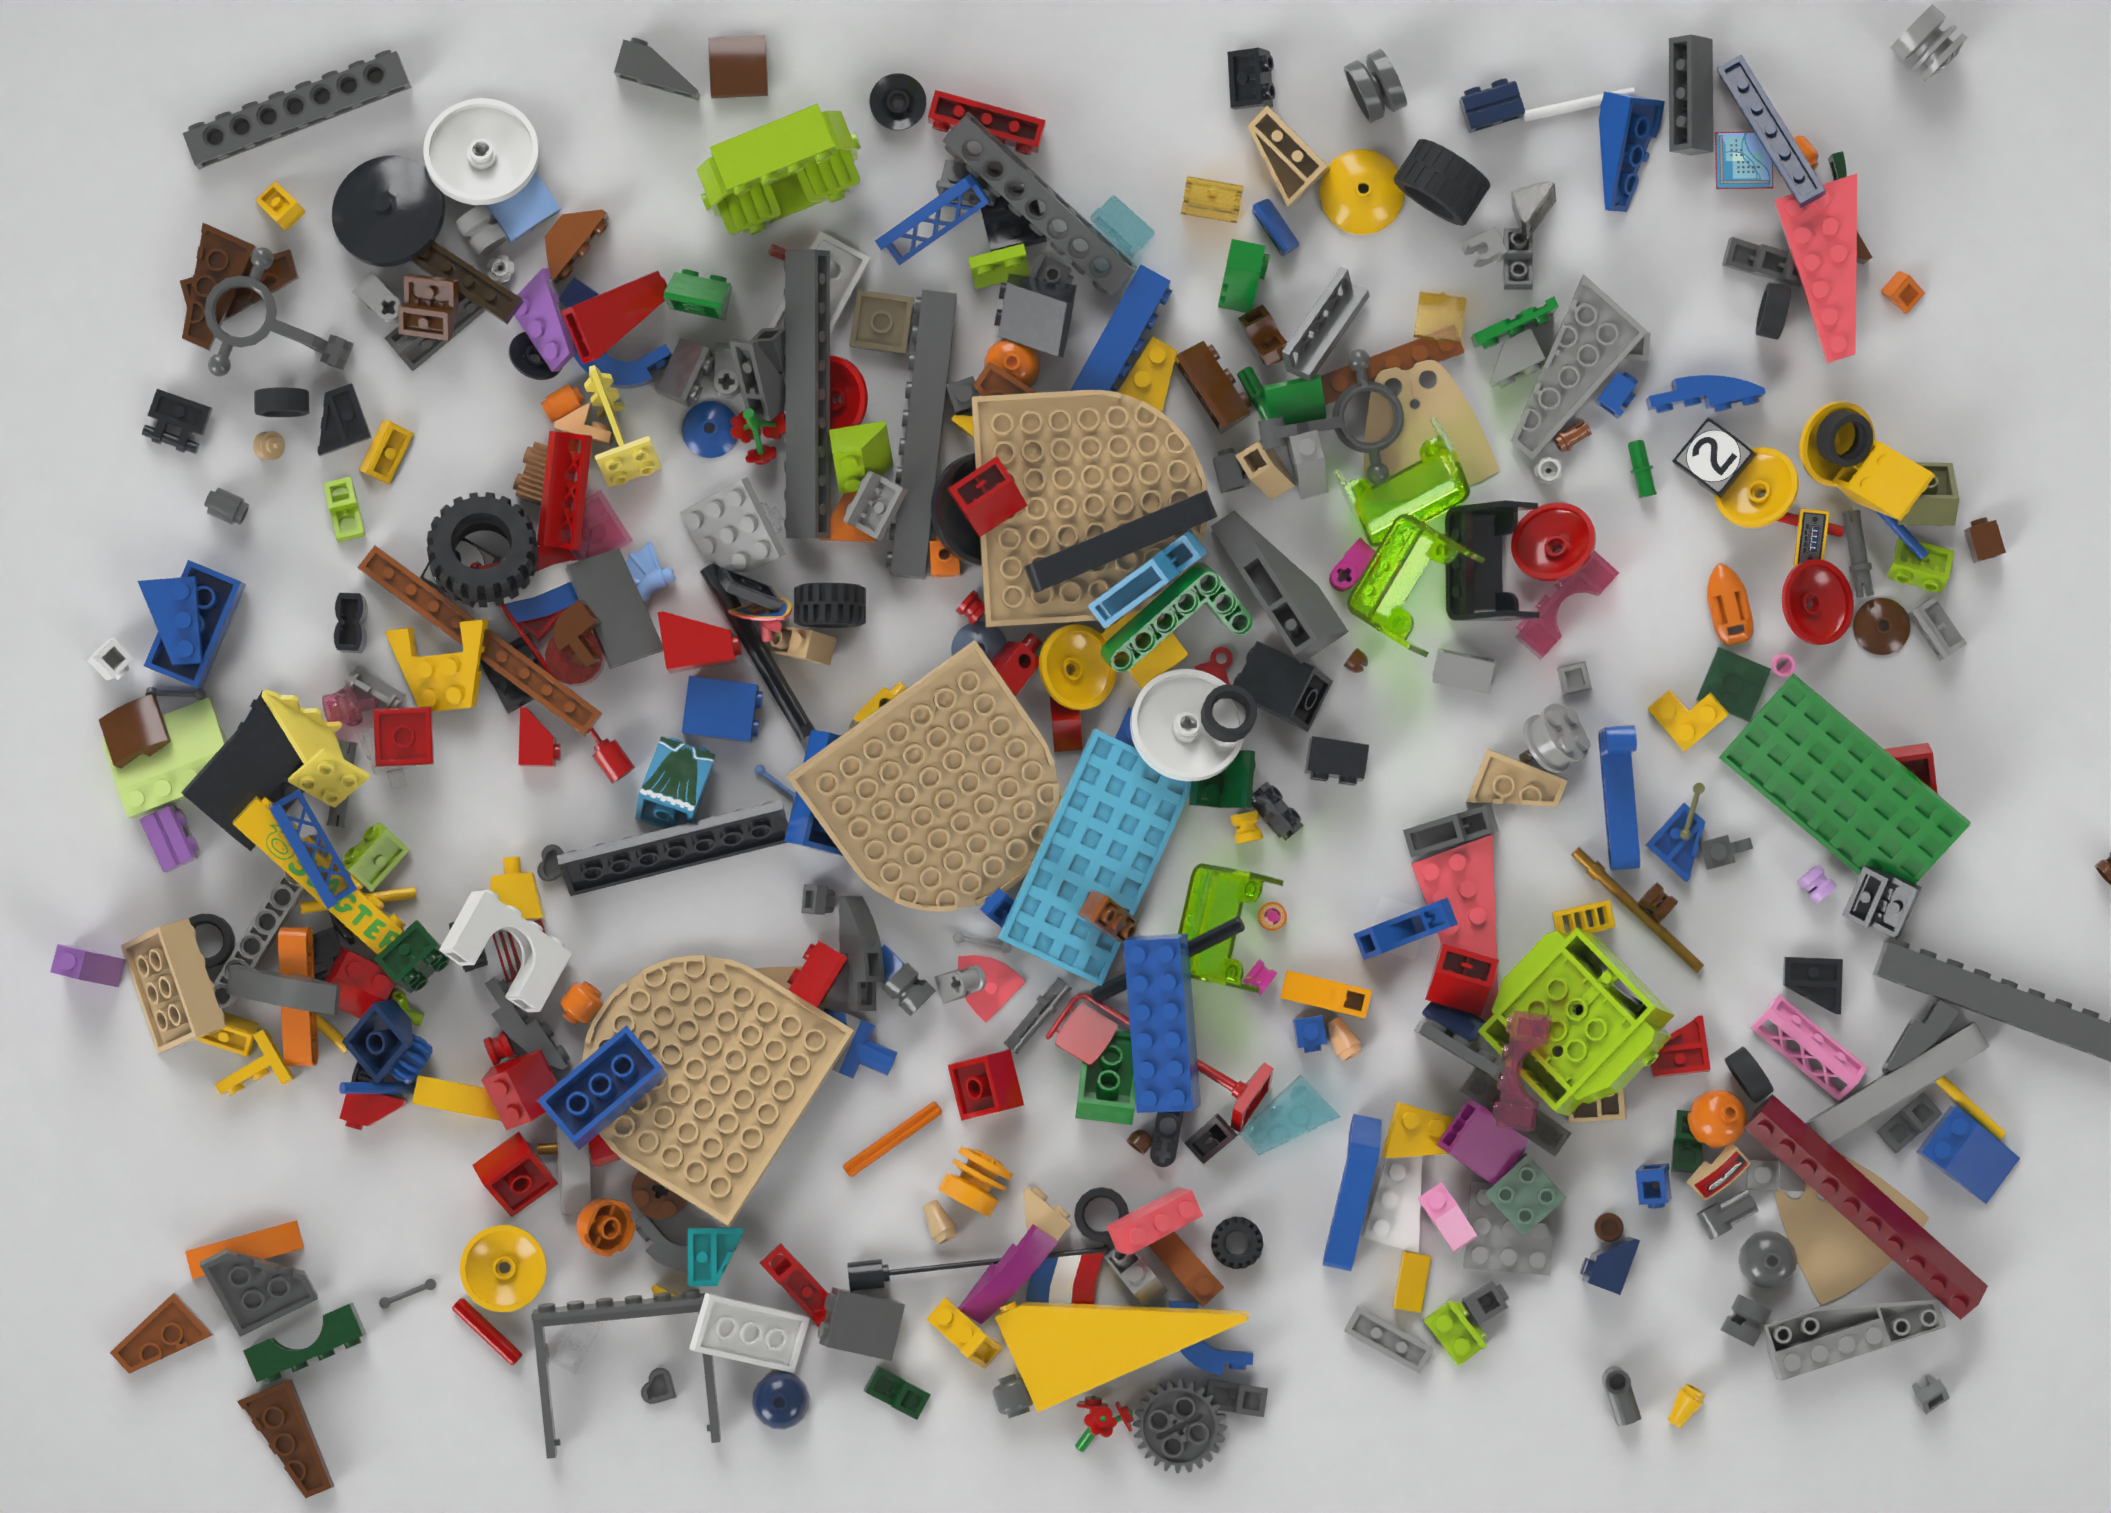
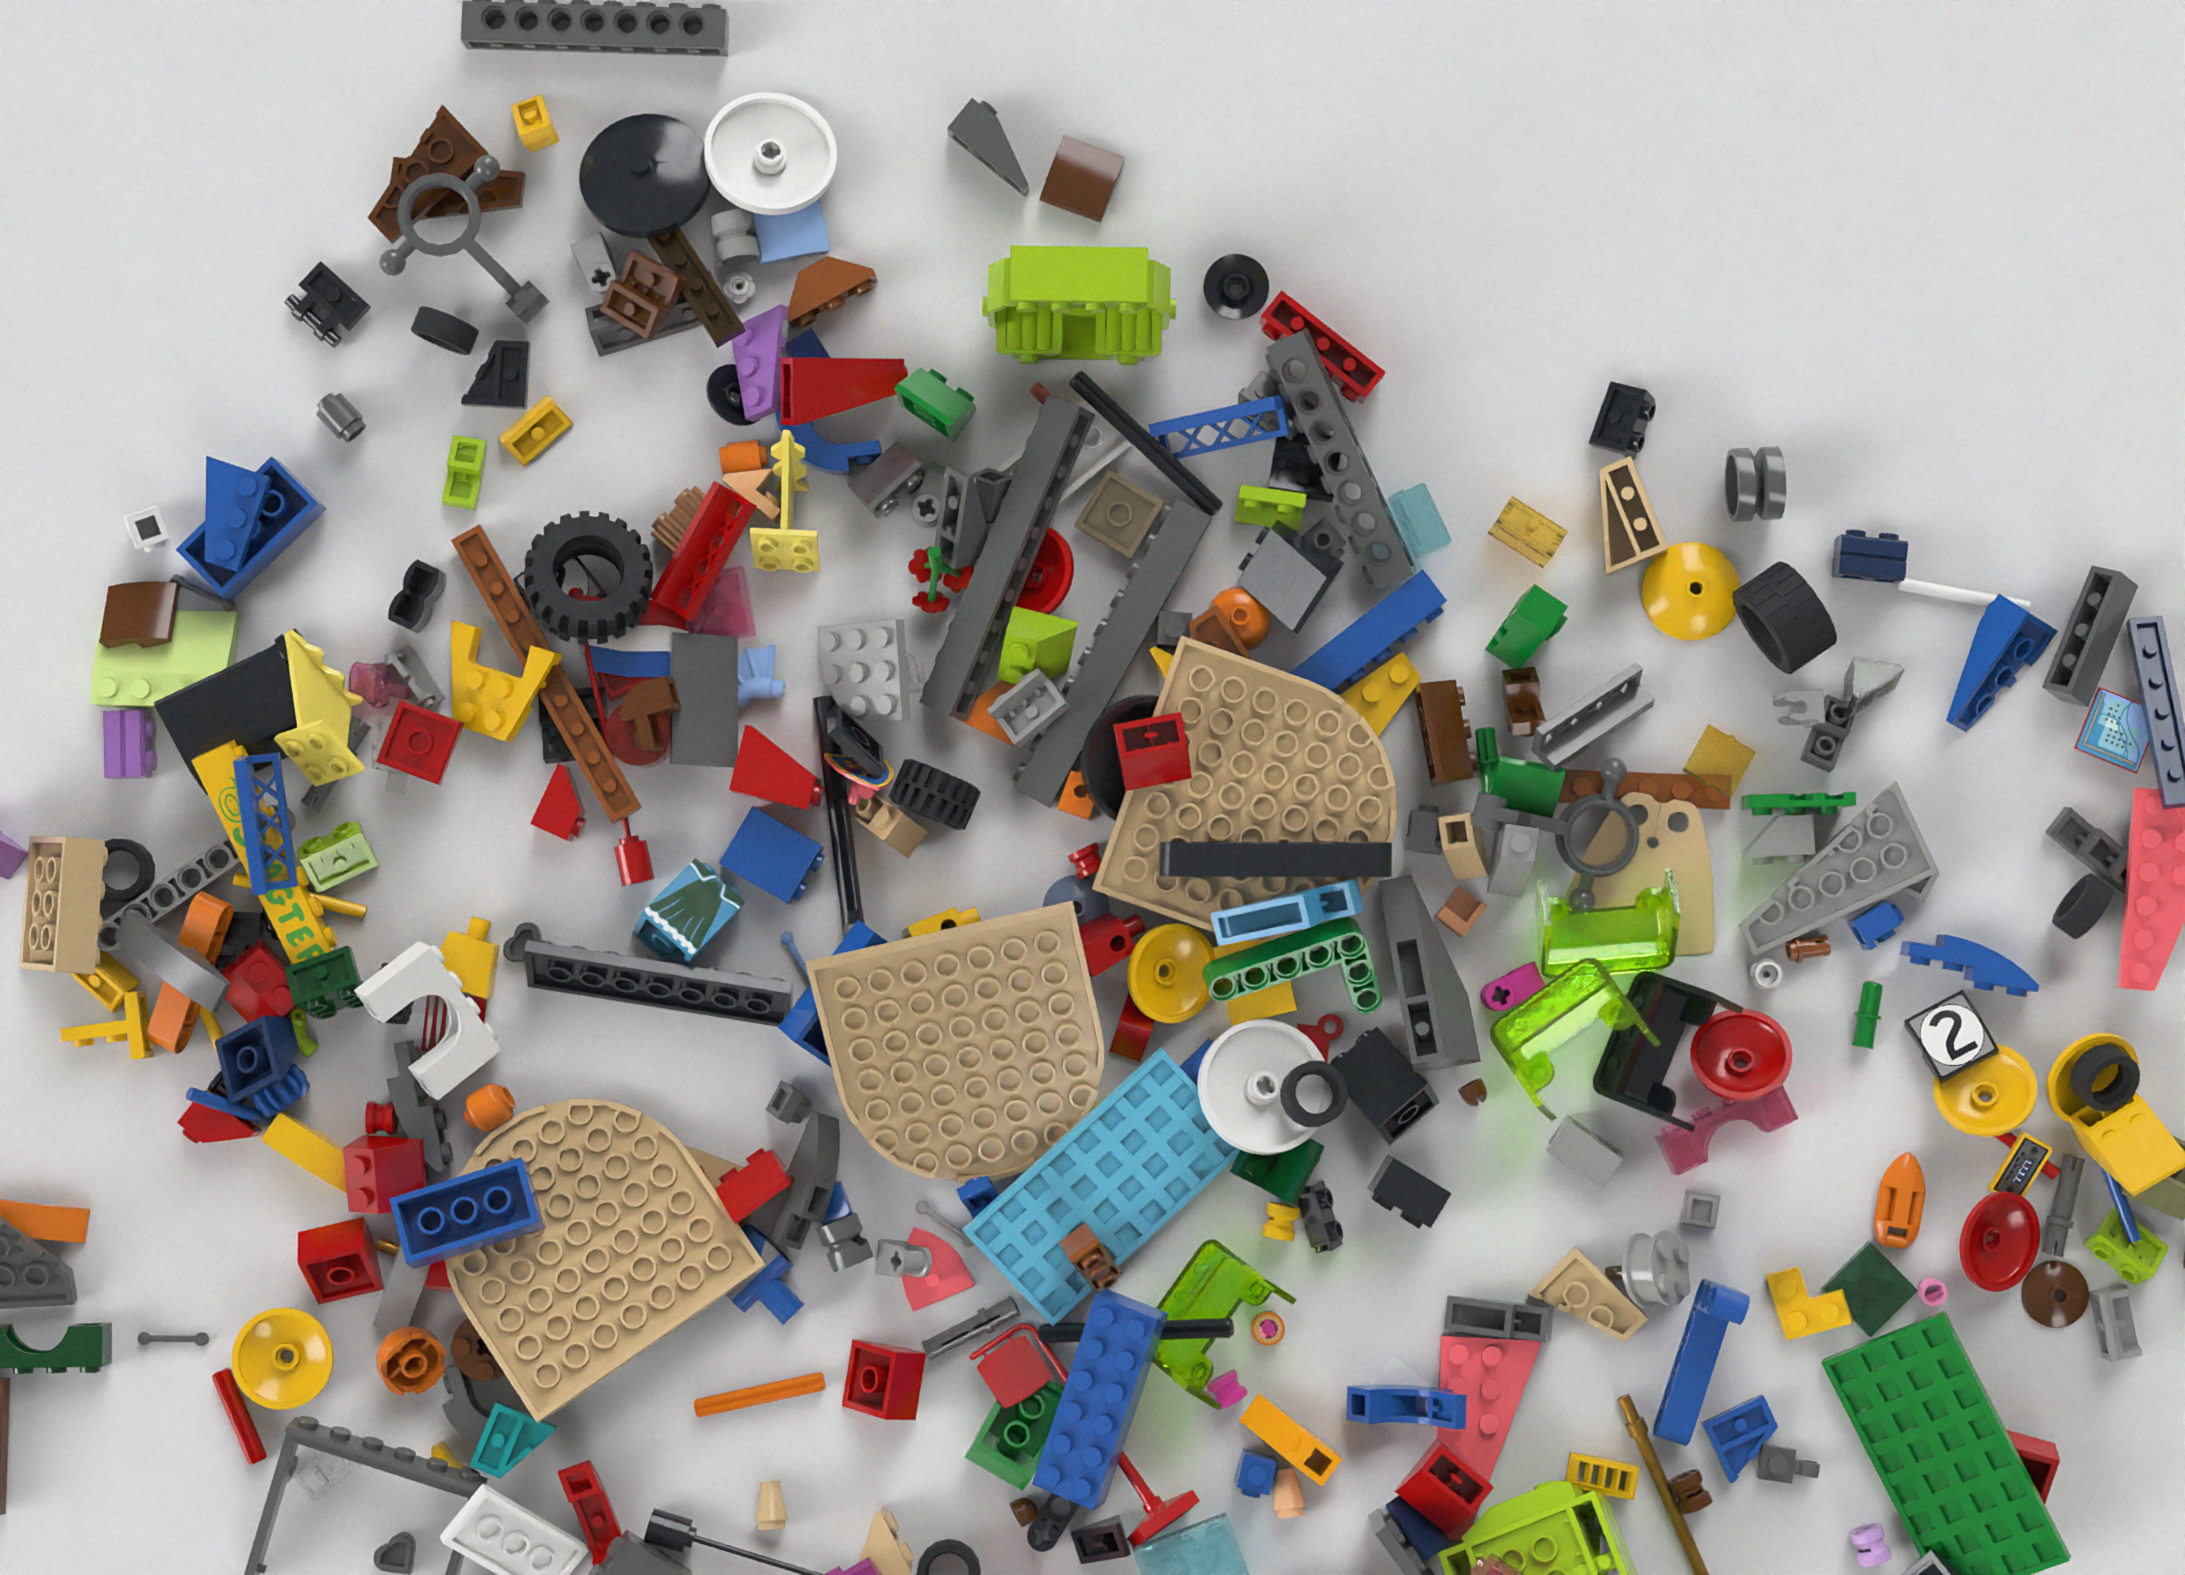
camera: 25 degrees right, 0 degrees up
(268, 445) = (413, 371): tan wheel -> none
(703, 443) = (882, 568): blue dish -> none
(879, 257) = (1145, 443): none -> black axle
(975, 1181) = (831, 1479): light orange wheel -> none
(1275, 226) = (1582, 589): blue slope -> none
(1285, 523) = (1460, 911): none -> nougat panel
(1698, 789) = (1785, 1387): olive hinge -> none

